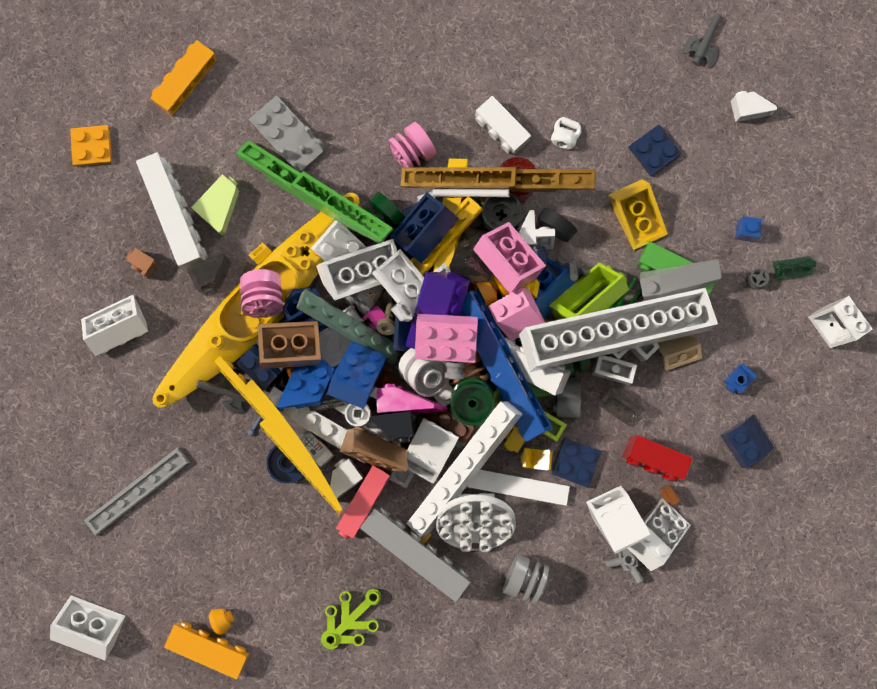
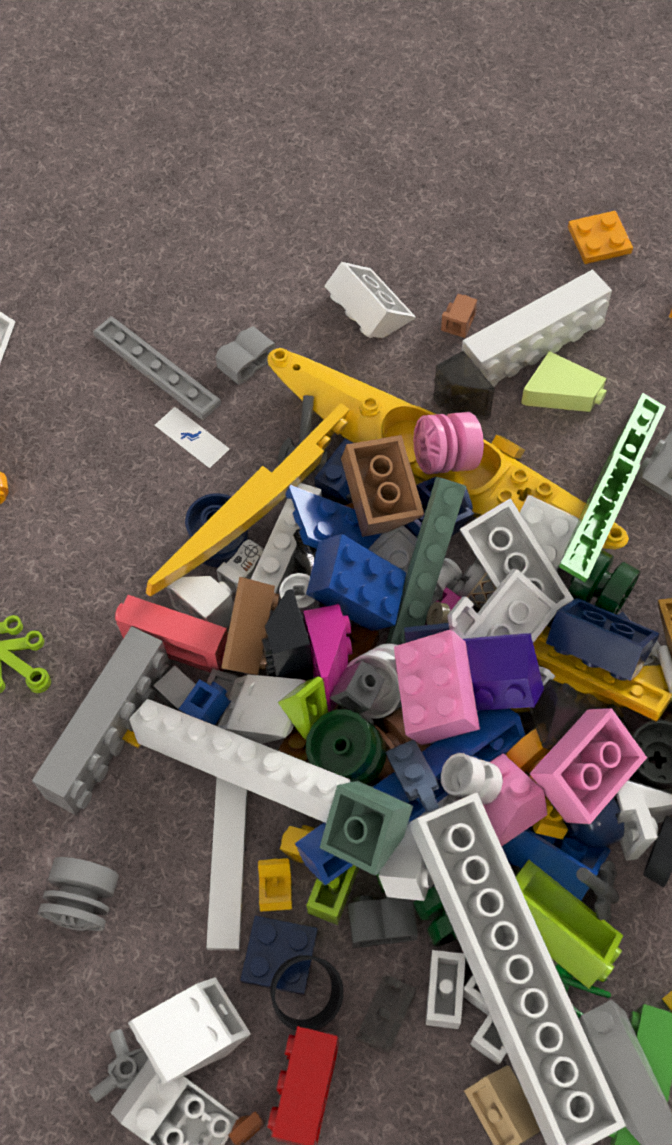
camera: 85 degrees right, 20 degrees down
(143, 424) = (244, 355): none -> light grey brick
(202, 472) = (192, 437): none -> white sticker
(401, 503) = (174, 688): none -> light grey brick
(415, 491) = (206, 702): none -> blue brick
(437, 386) = (357, 687): none -> dark grey brick
(442, 421) = (305, 704): none -> lime slope
(454, 370) = (389, 715): light grey wheel -> none
(475, 520) = (164, 798): white bracket -> none
(497, 362) = (414, 774): none -> sand blue hinge
(506, 328) = (467, 775): none -> white wheel
(529, 397) = (364, 826): none -> sand green slope
(616, 443) = (330, 1010): none -> black tyre

